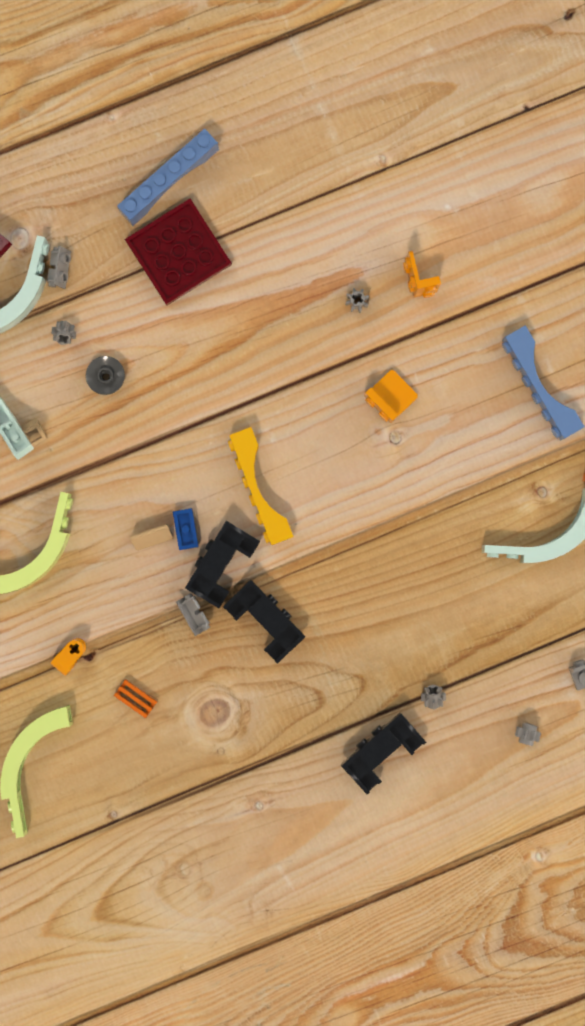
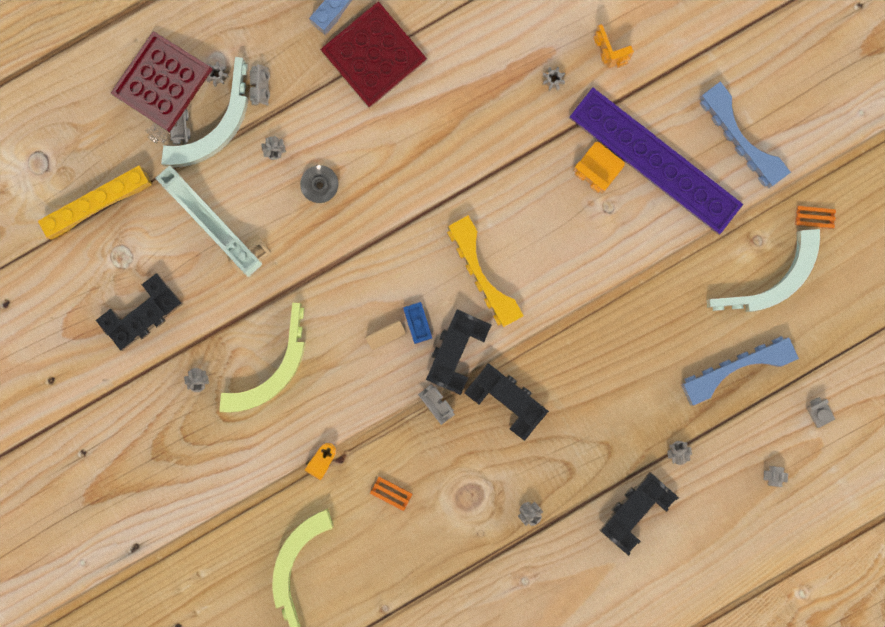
camera: 10 degrees left, 0 degrees up
(21, 248) = (221, 72): none -> light grey gear
(273, 738) = (530, 513): none -> light grey gear
(449, 397) = (656, 161): none -> dark purple plate
(465, 633) = (702, 387): none -> medium blue arch

